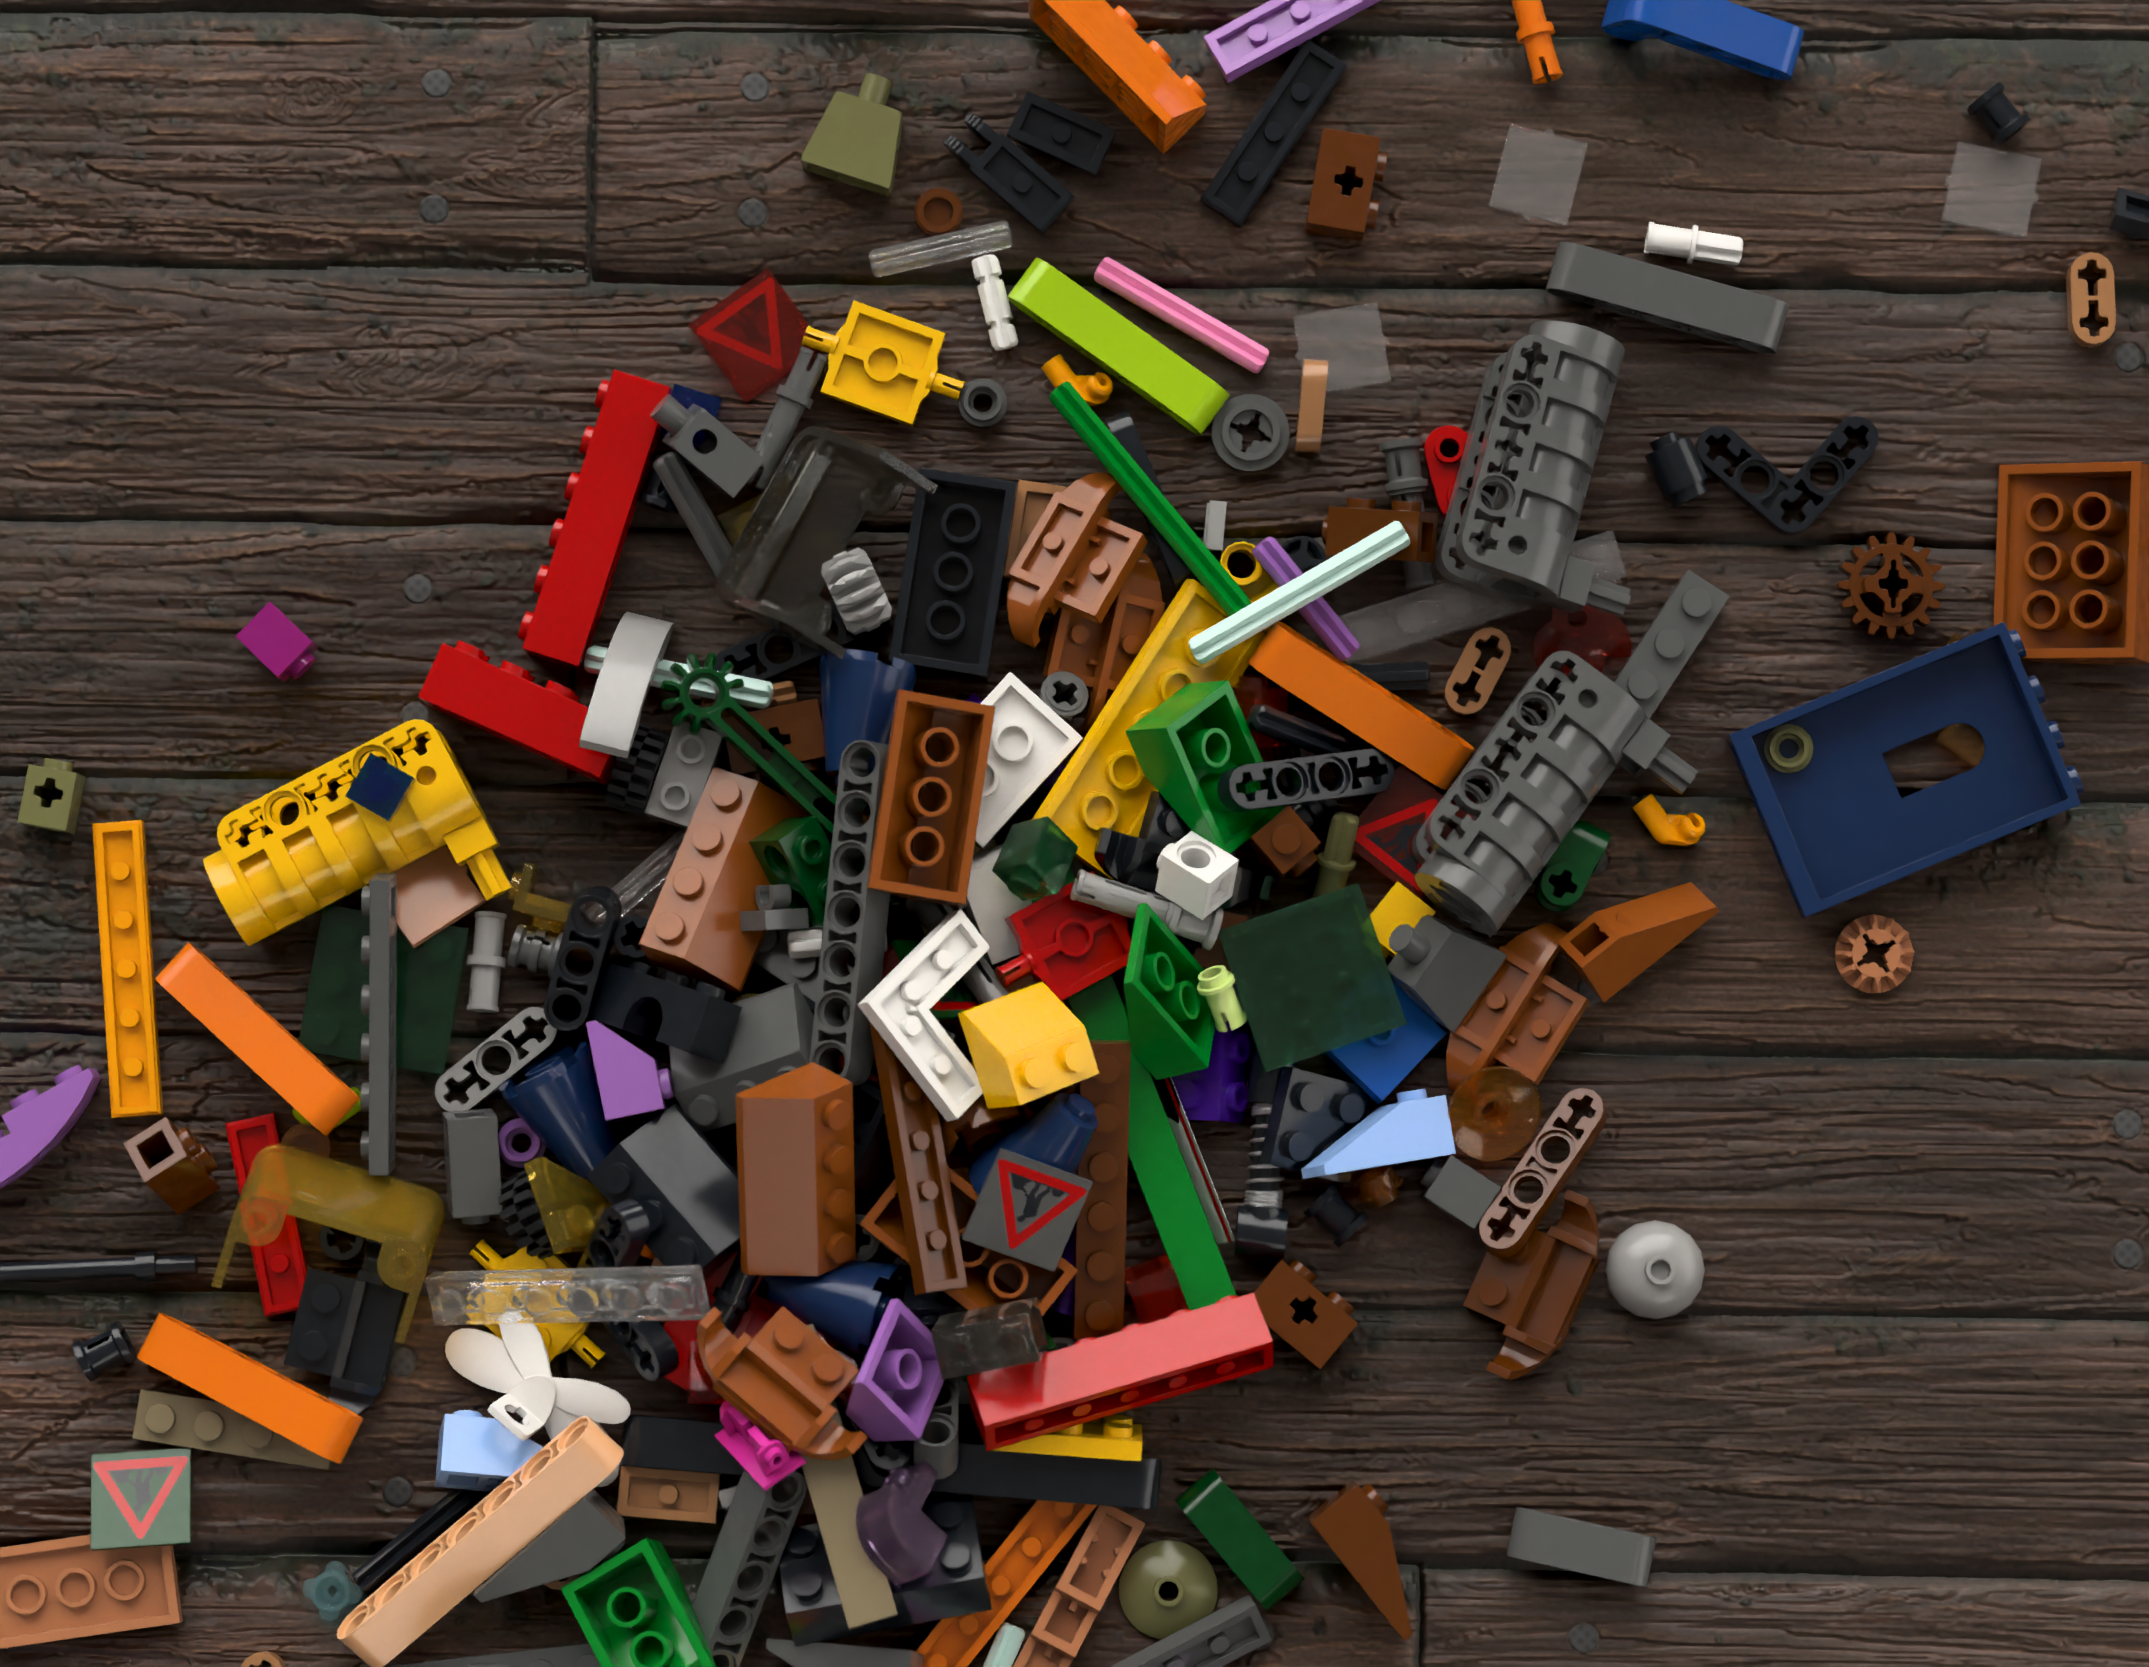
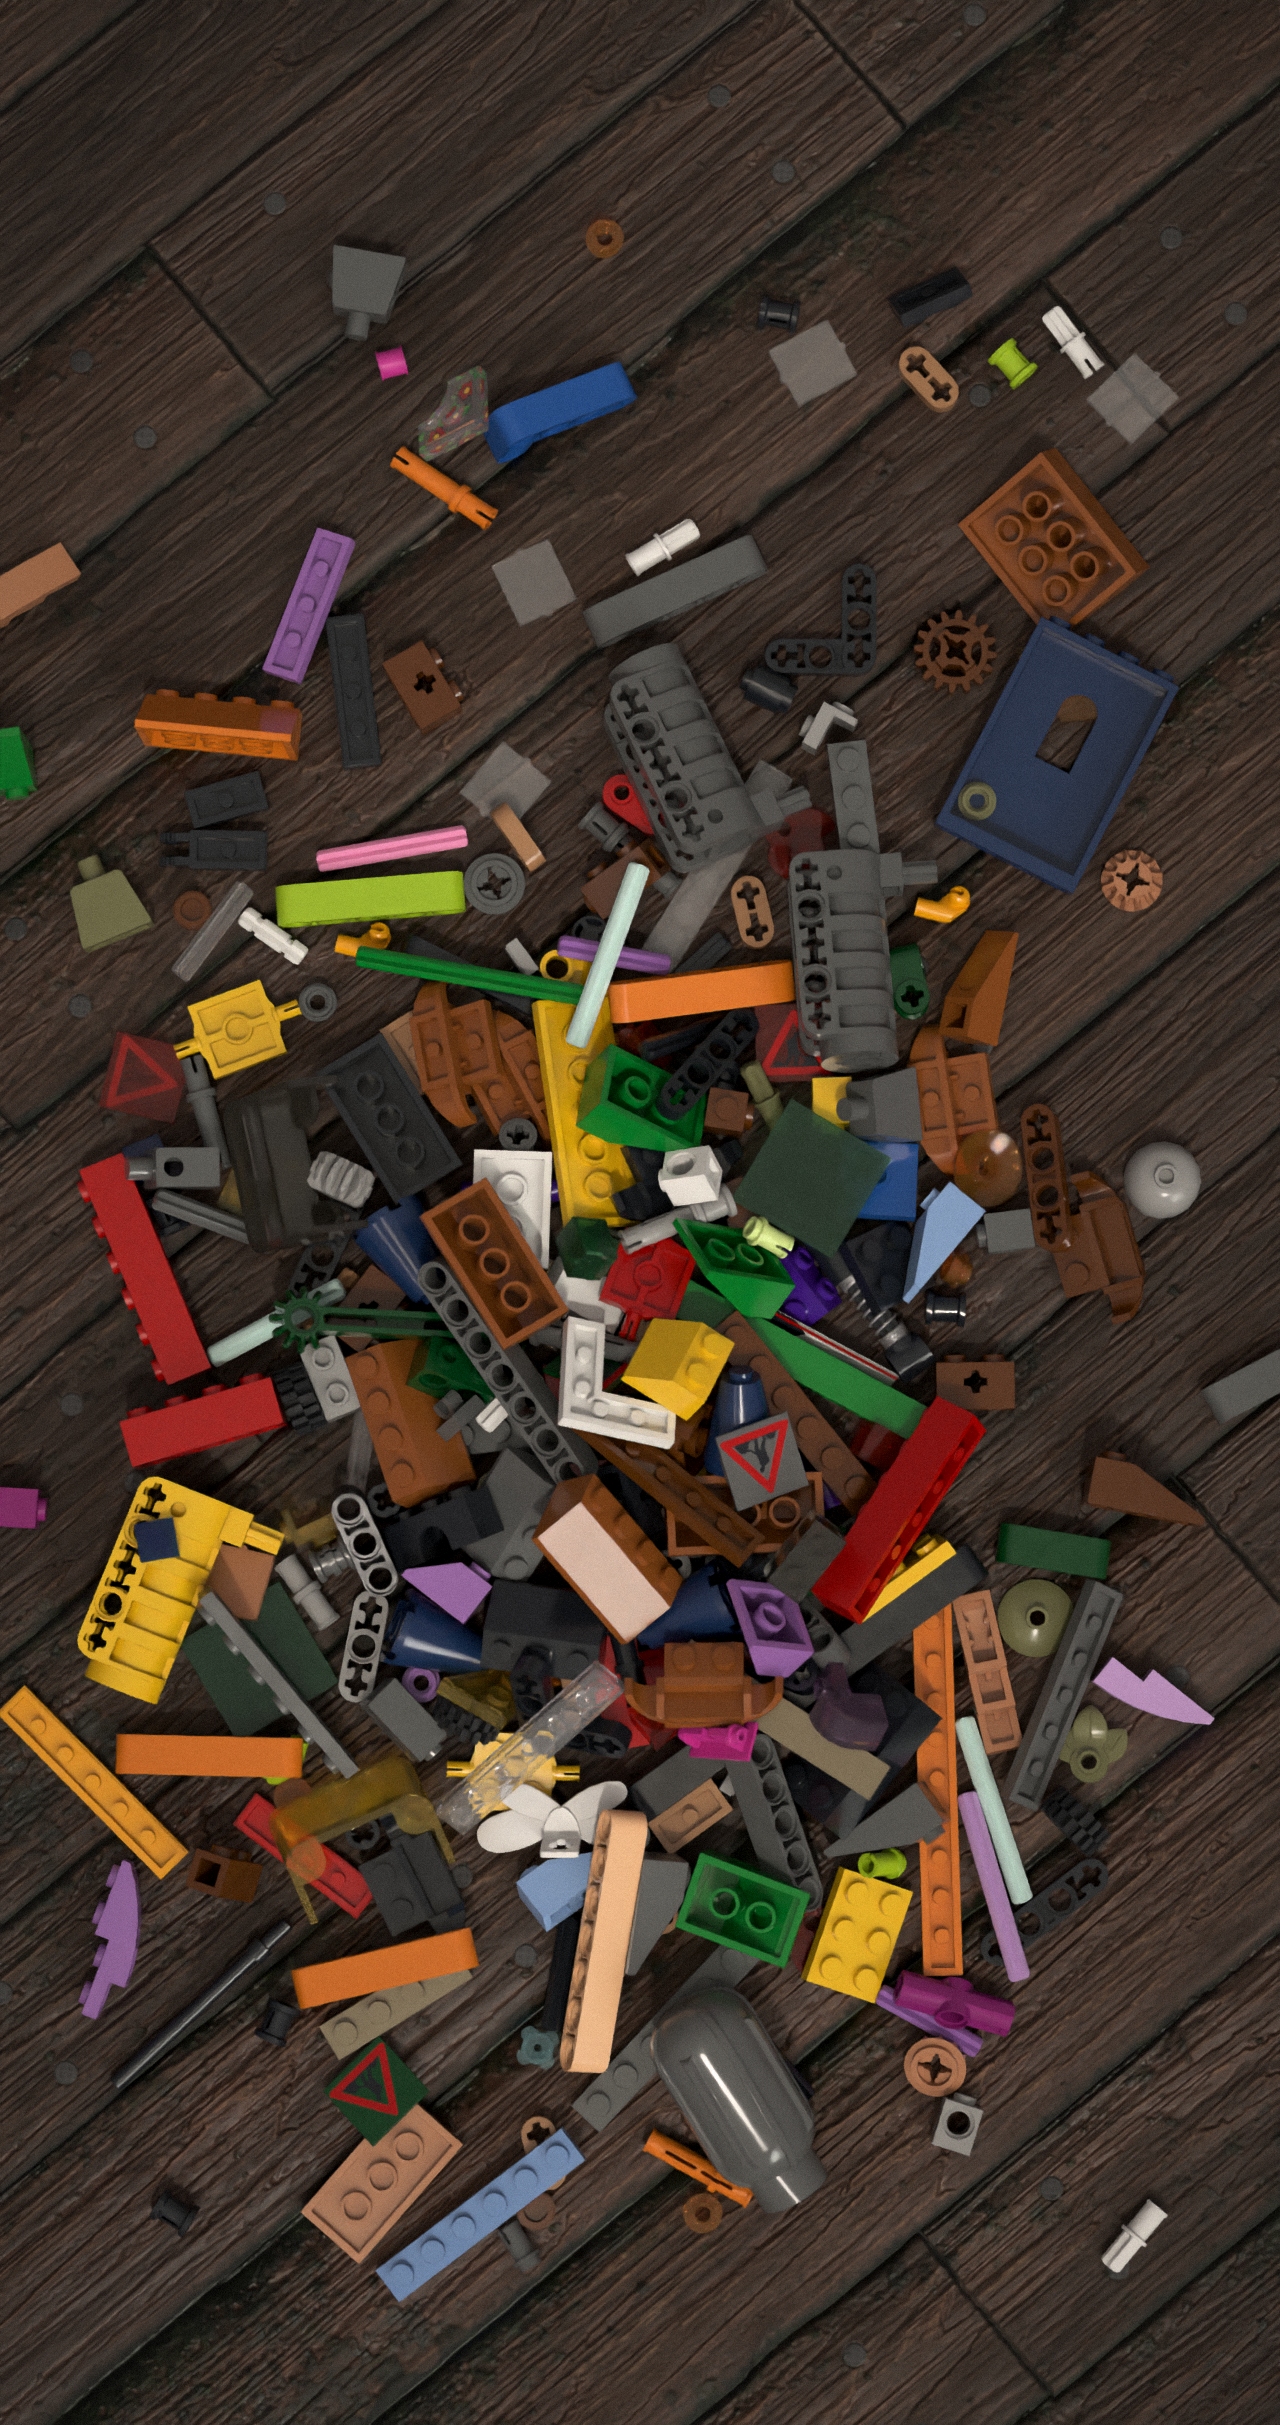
camera: 40 degrees left, 0 degrees up
(624, 684) = (250, 1353): light grey slope -> none
(1691, 546) = (816, 728): none -> light grey bracket

